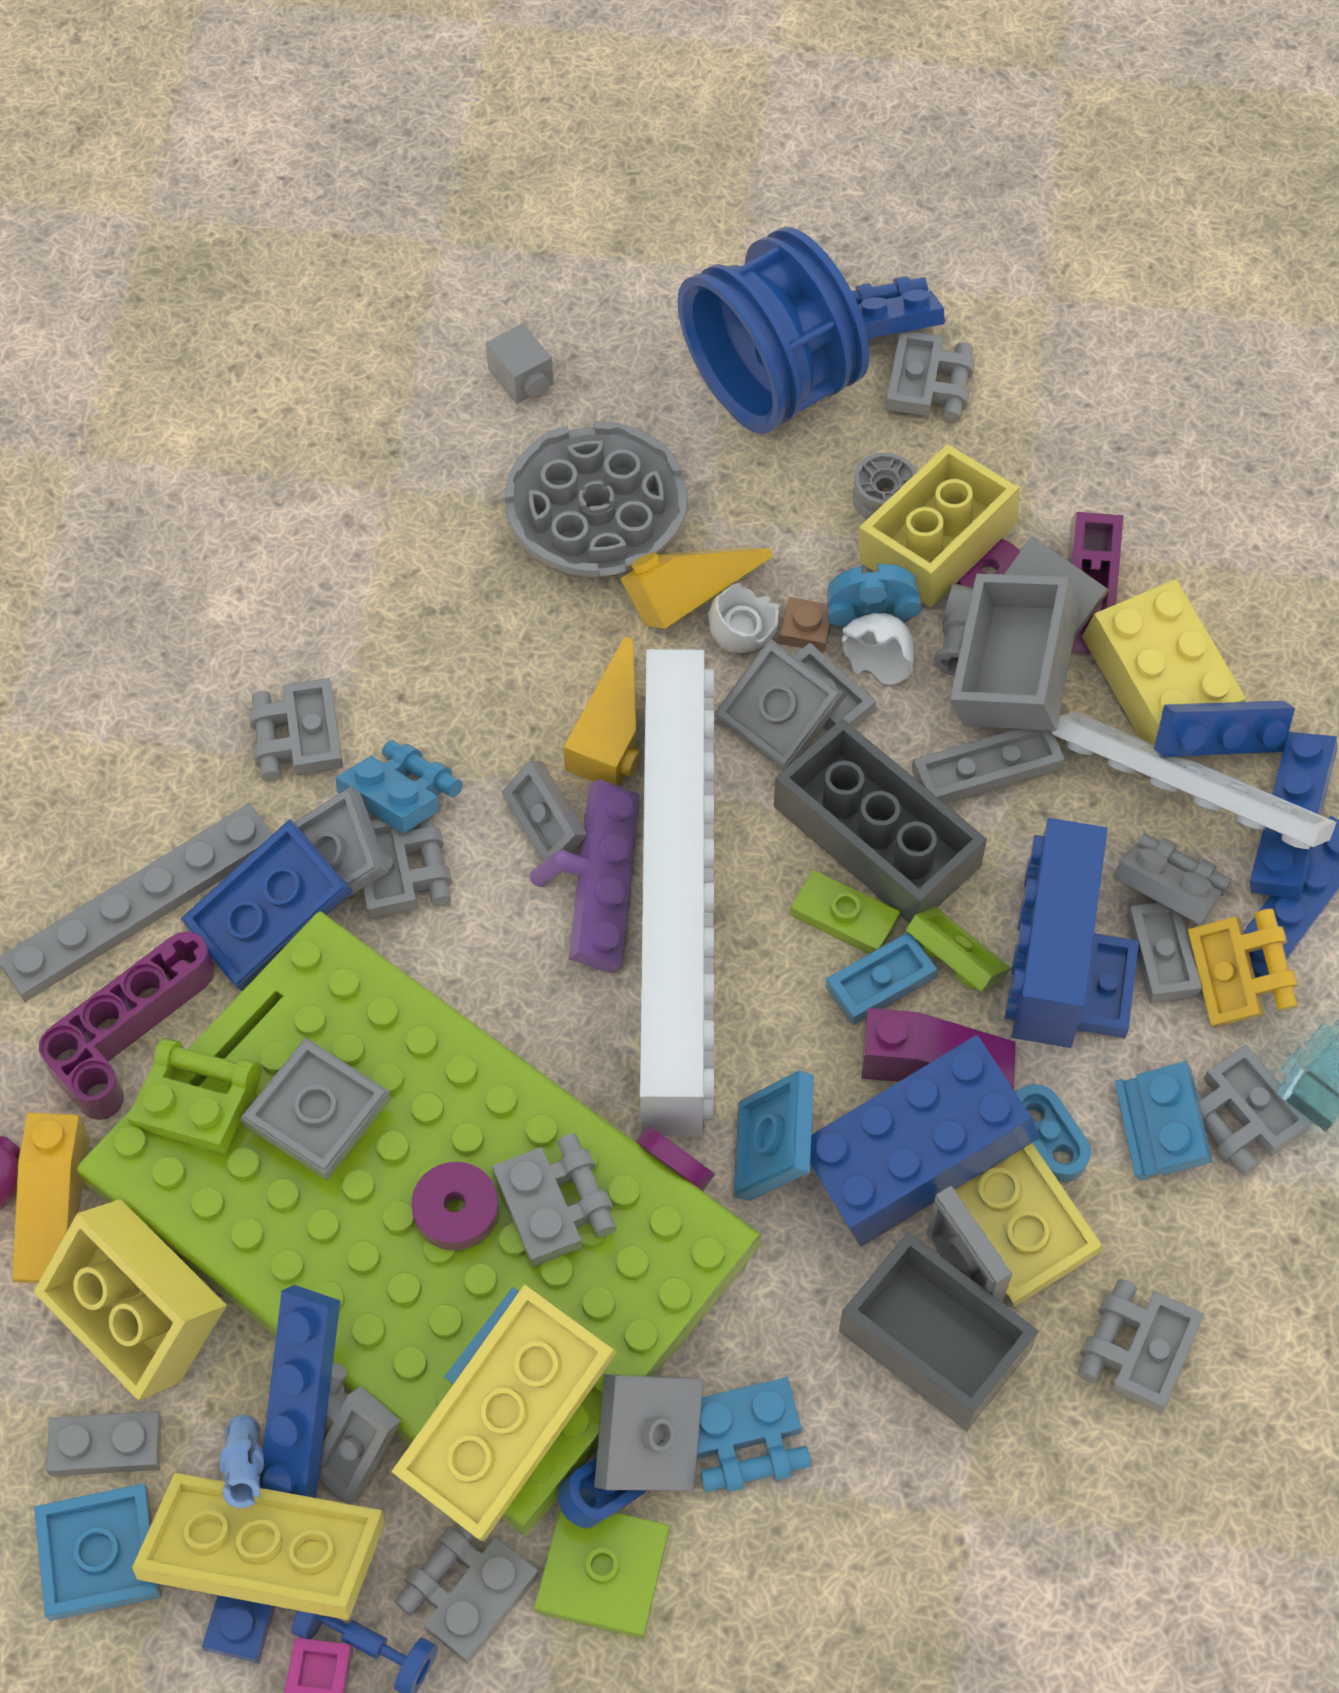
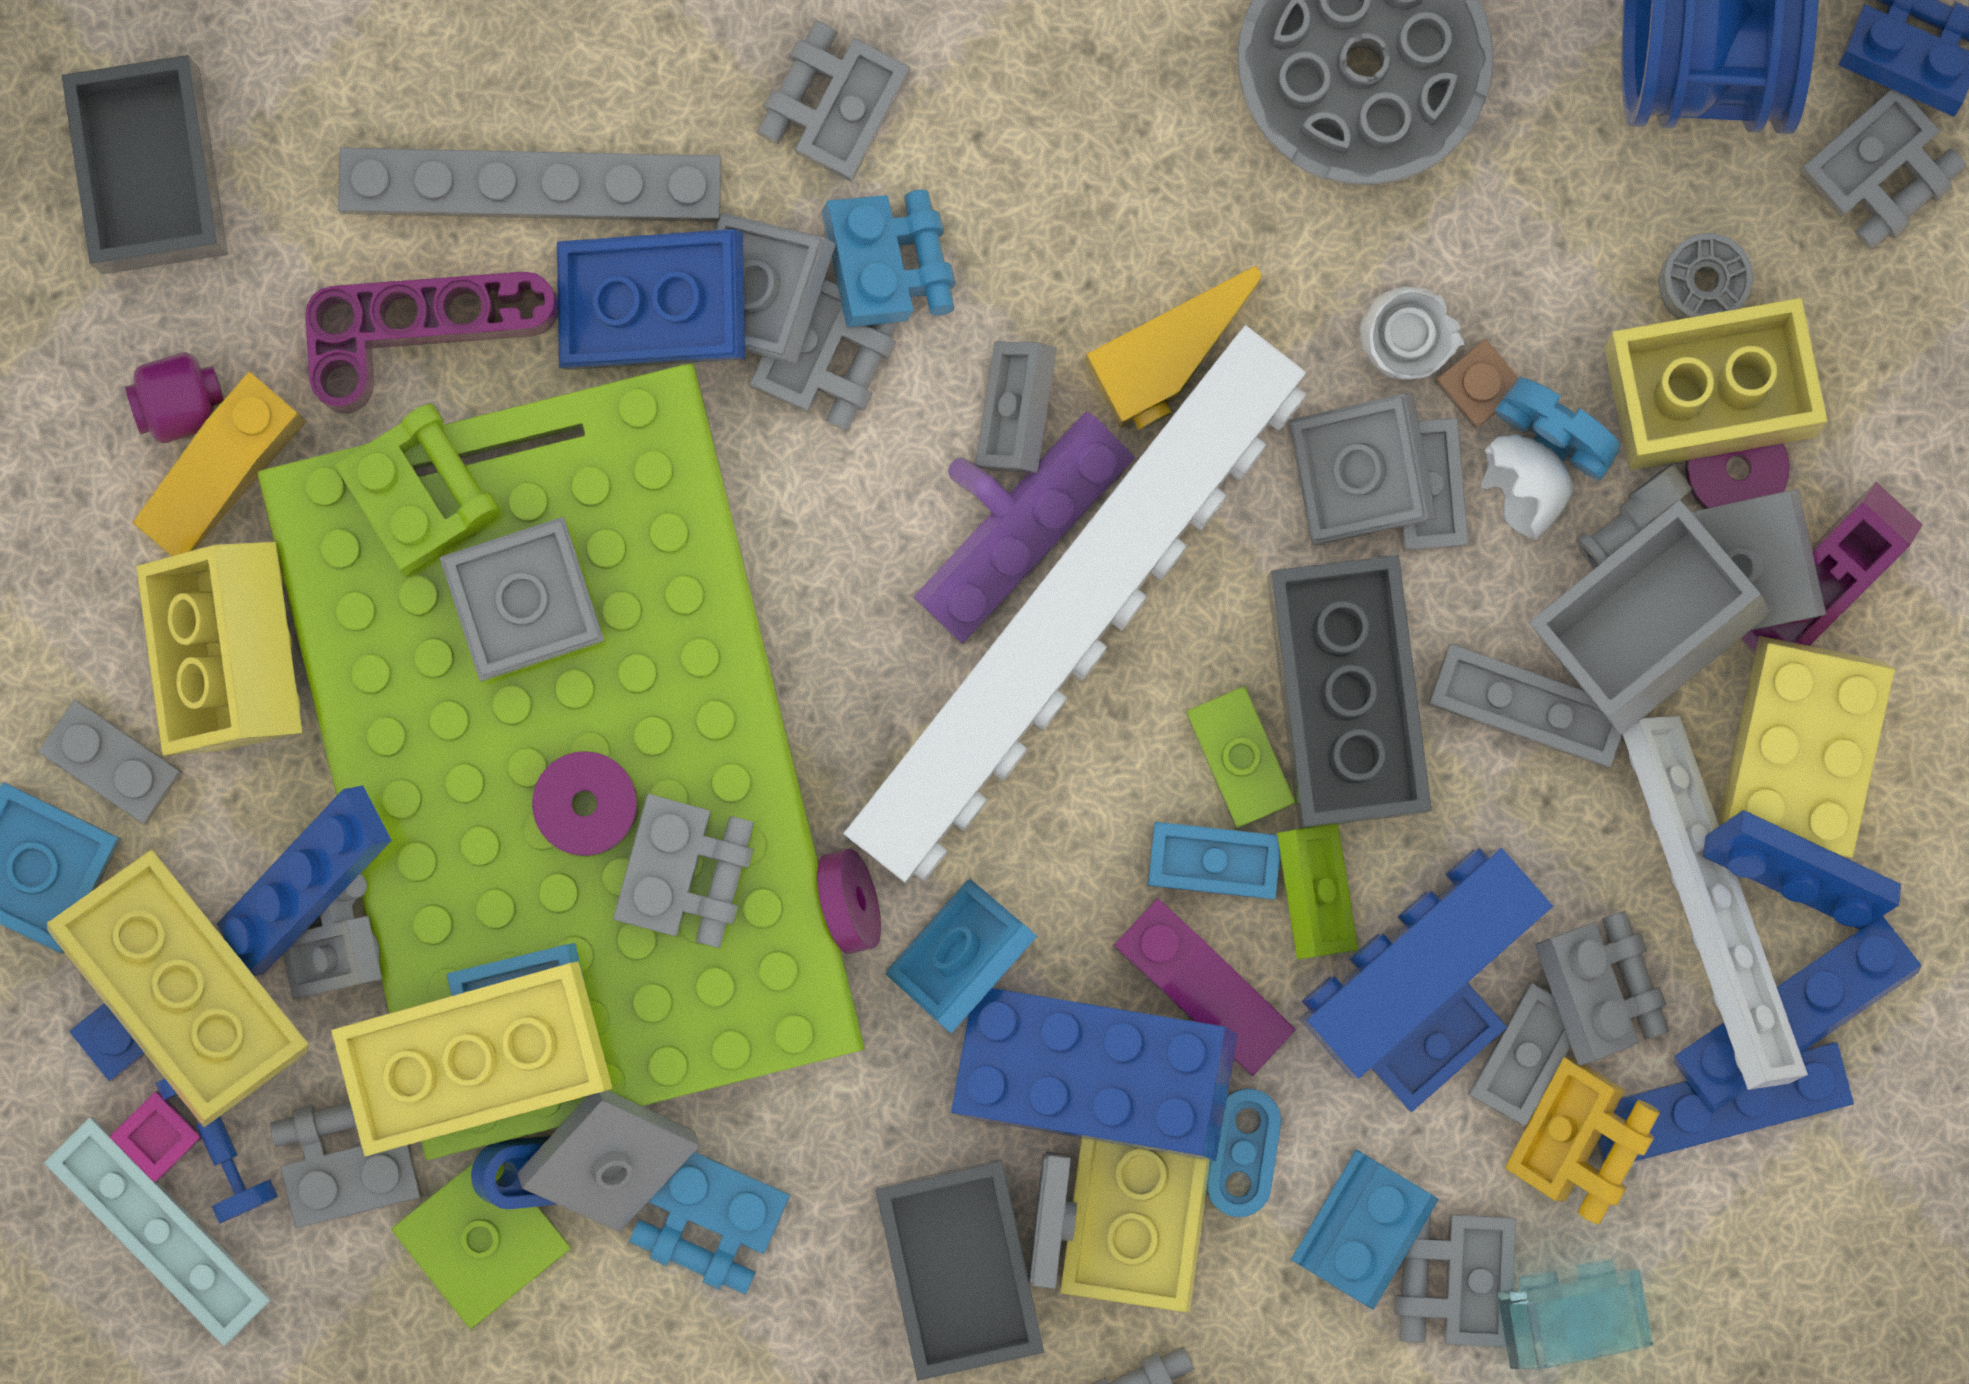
camera: 35 degrees right, 25 degrees up
(241, 1461) = (217, 891): light blue pin -> none
(677, 583) = (1390, 237): yellow slope -> none

